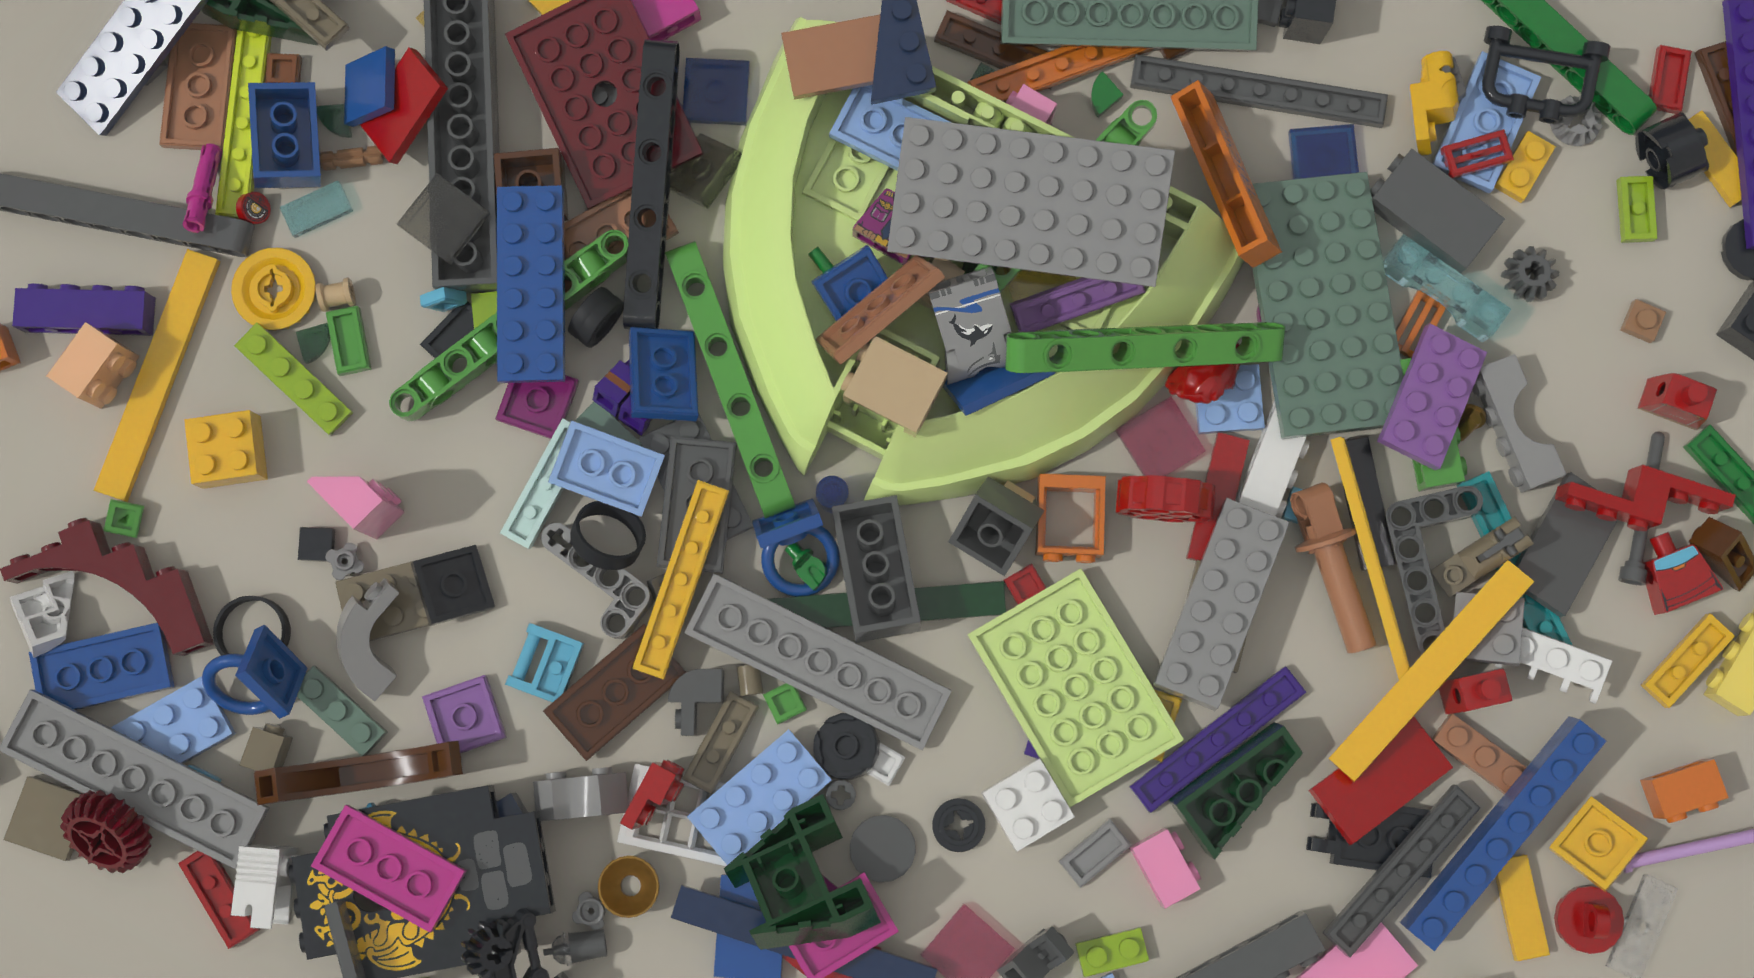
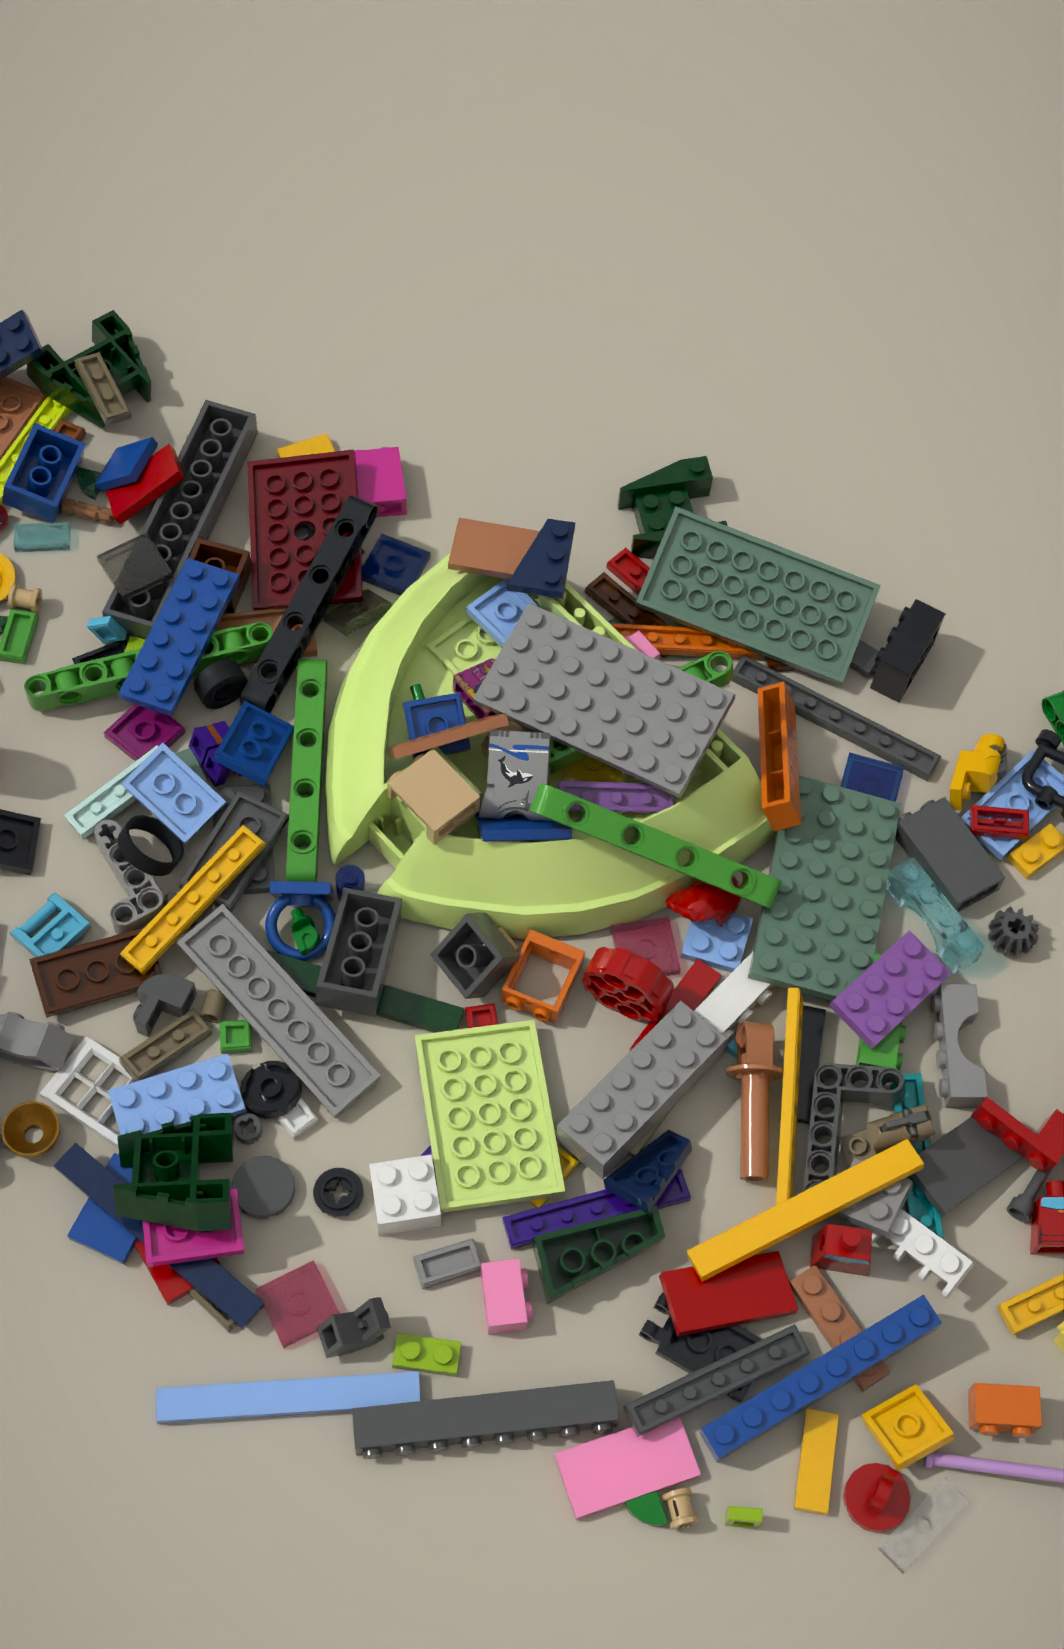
camera: 15 degrees right, 20 degrees down
(659, 787) = (92, 1049): red plate -> none
(1260, 686) = (649, 1171): none -> dark blue wing
(1429, 303) = (912, 917): orange tile -> none
(1471, 419) = (918, 1026): pearl gold plate -> none

